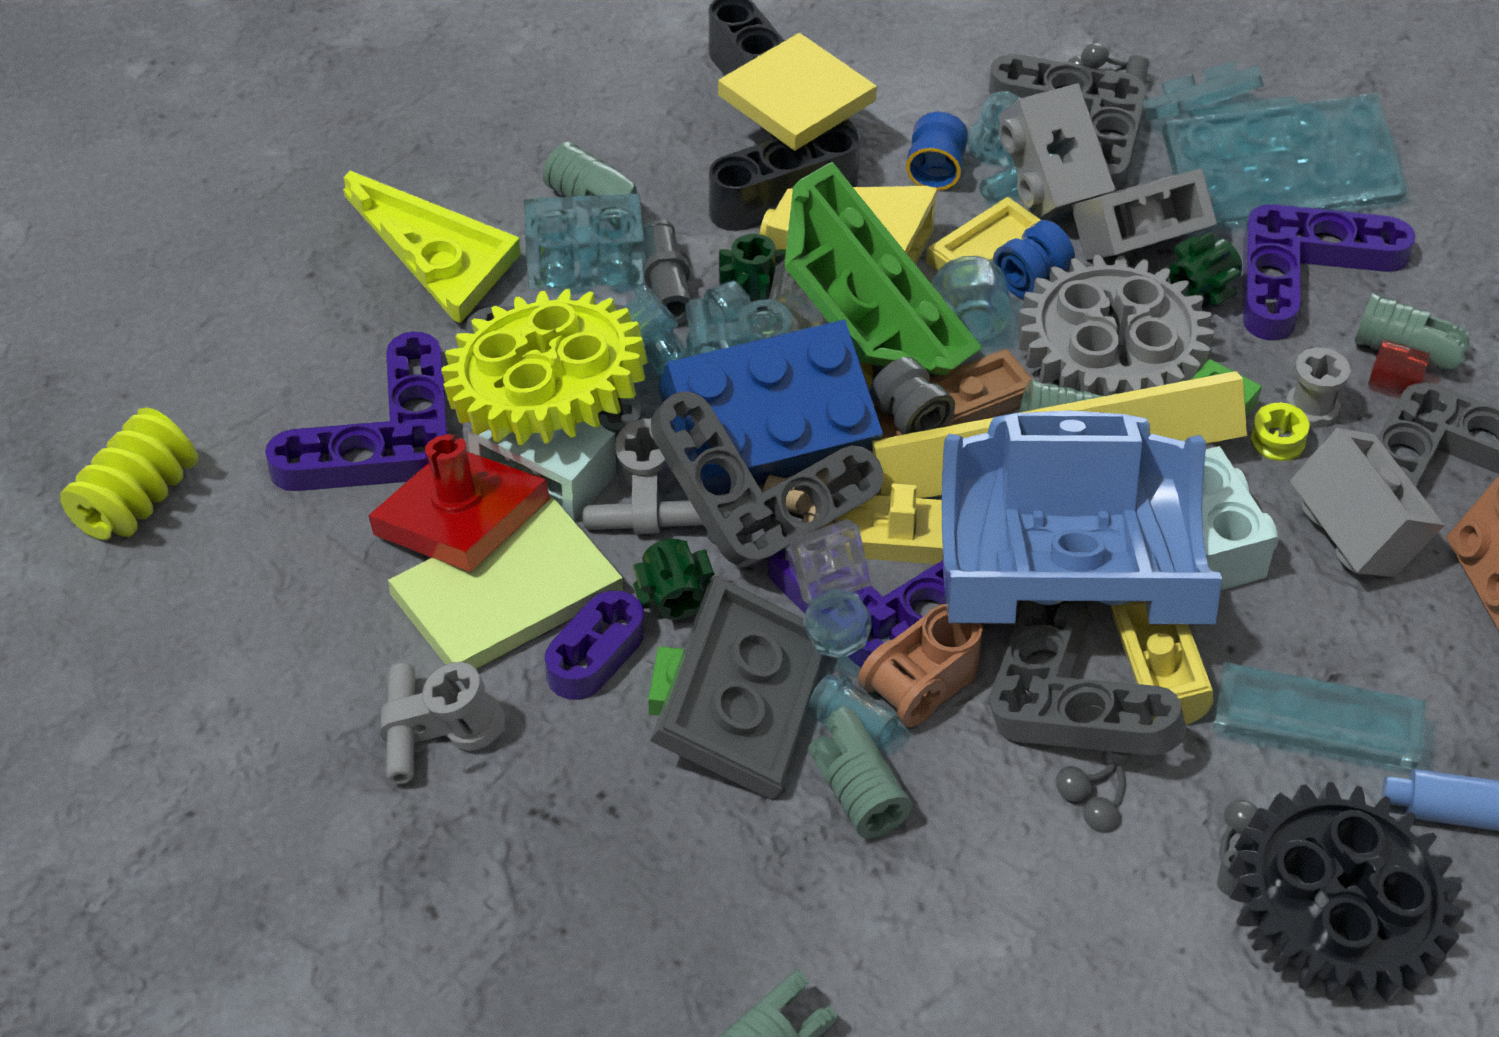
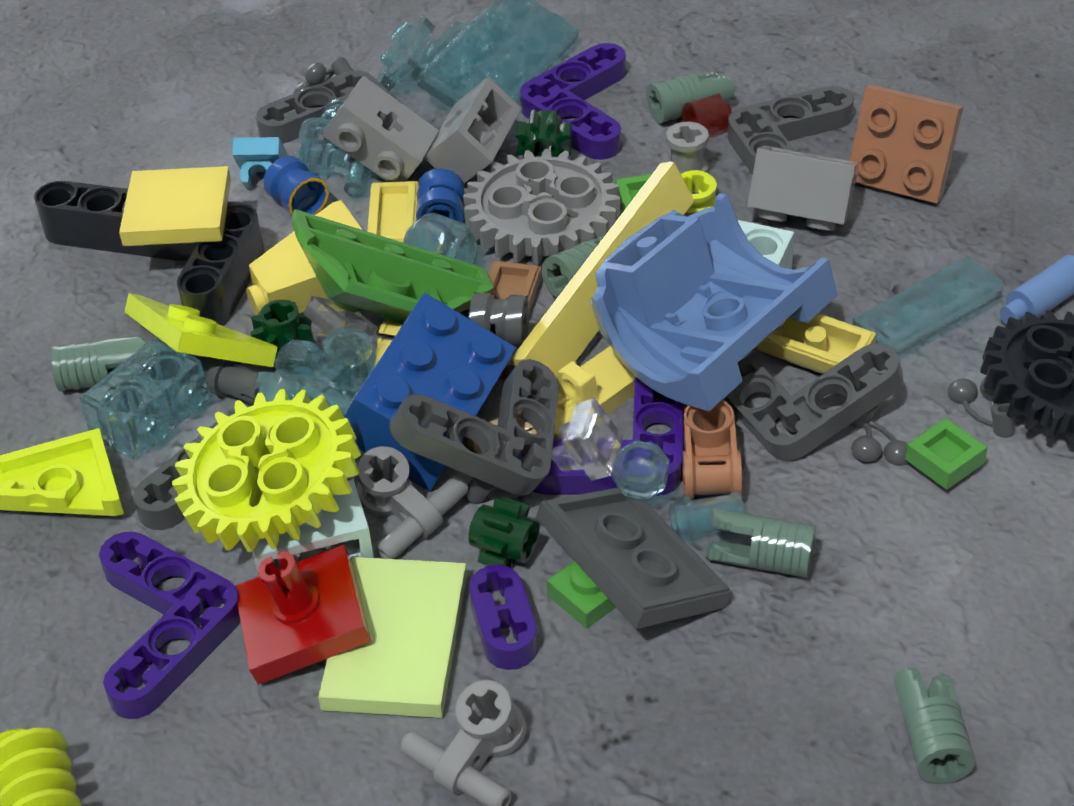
camera: 45 degrees left, 5 degrees down
(678, 220) = (190, 334): none -> neon yellow wing
(942, 96) = (256, 155): none -> medium azure tile
(1126, 849) = (946, 453): none -> bright green plate

